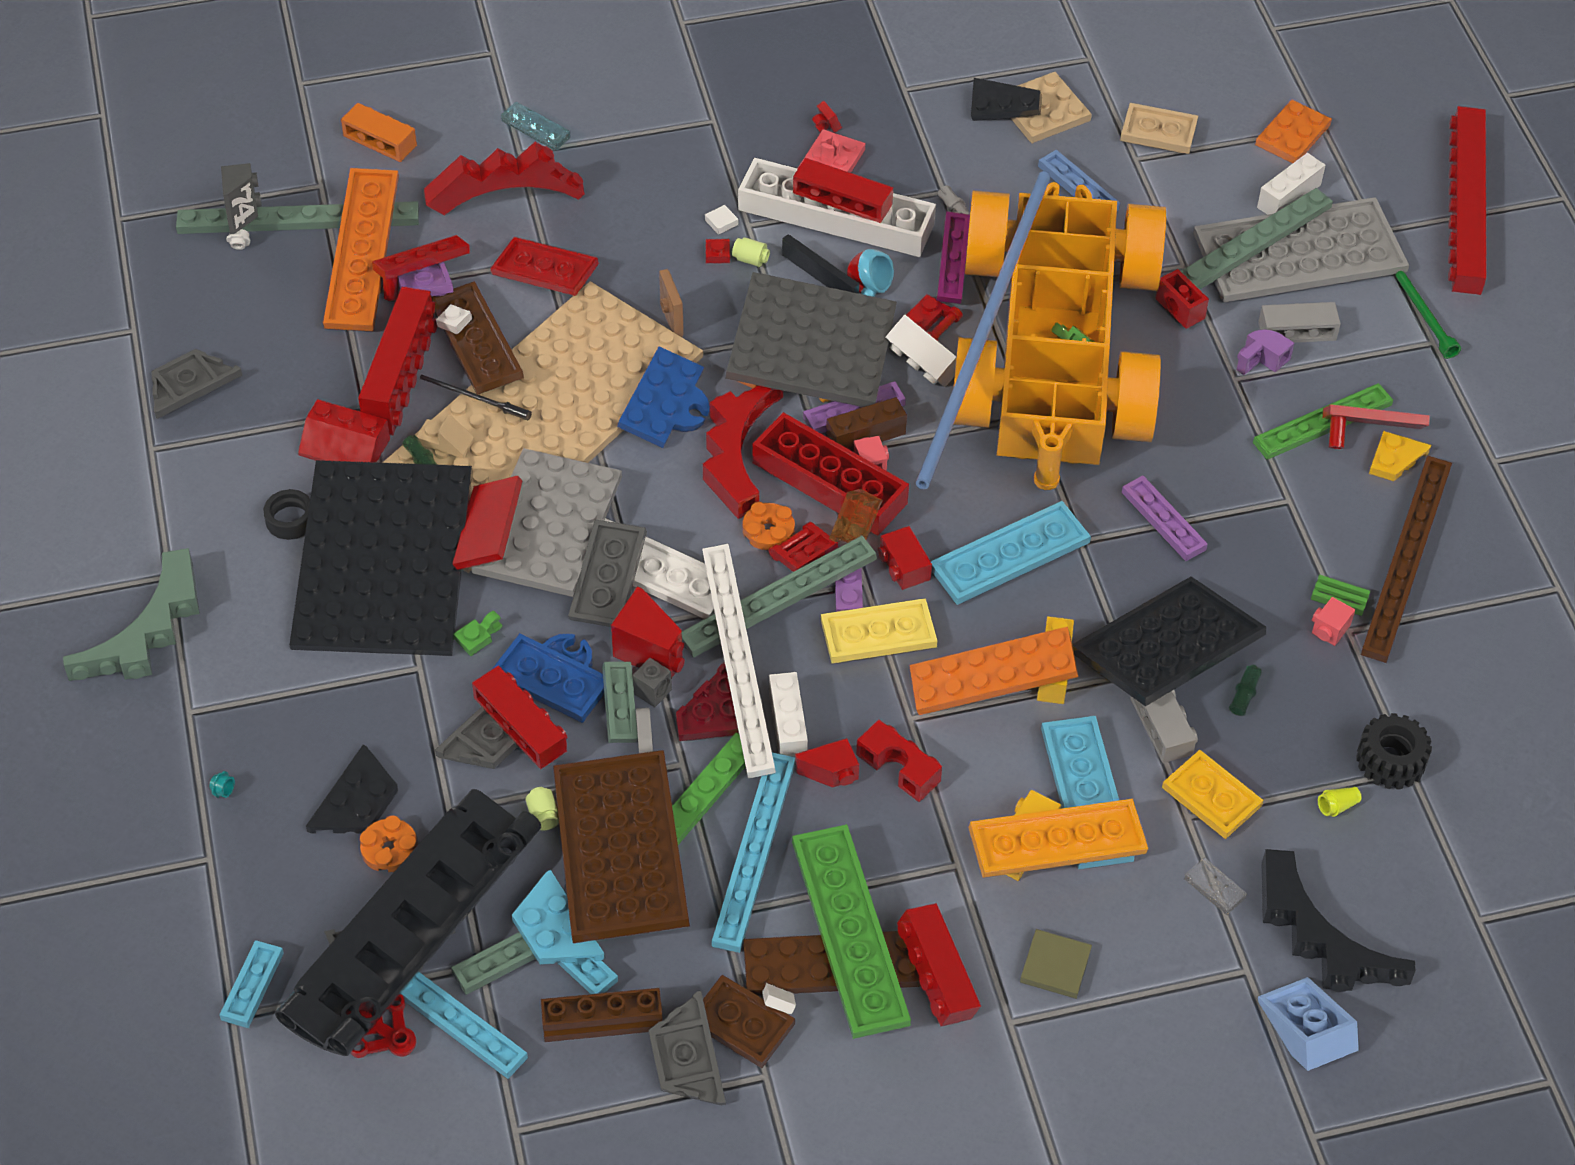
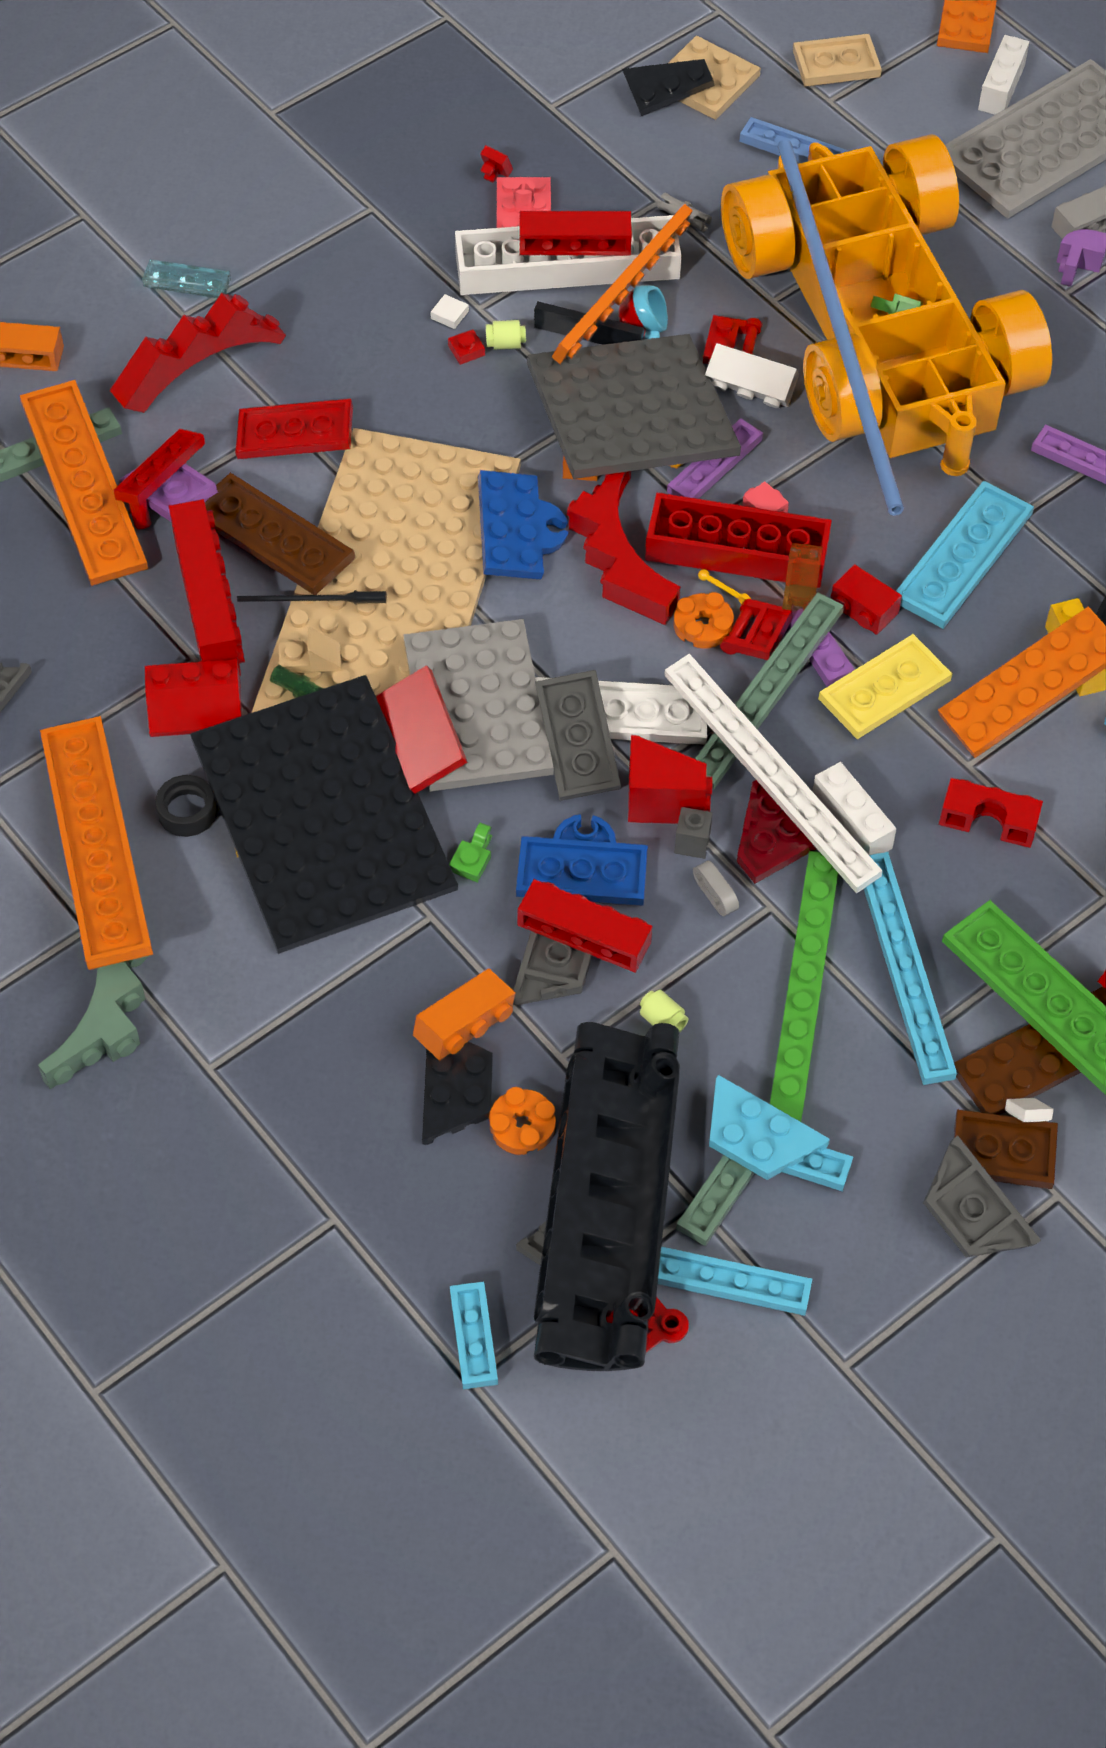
camera: 25 degrees left, 5 degrees up
(201, 514) = (95, 844): none -> orange plate
(222, 784) = (301, 1132): teal plate -> none
(390, 746) = (464, 1014): none -> orange brick
(454, 319) = (238, 521): white plate -> none
(600, 1014) = (863, 1205): reddish brown brick -> none
(619, 702) = (674, 867): sand green plate -> none
(619, 847) = (777, 1020): reddish brown plate -> none
(671, 302) = (461, 419): medium nougat plate -> none
(791, 491) = (704, 575): none -> yellow hinge
(829, 764) = (926, 844): red slope -> none
(850, 244) = (618, 290): none -> orange plate
(880, 419) = (745, 470): reddish brown brick -> none
(953, 257) = (723, 265): magenta piece -> none
(1182, 299) = (975, 230): red brick -> none
(1257, 238) = (1005, 143): sand green plate -> none

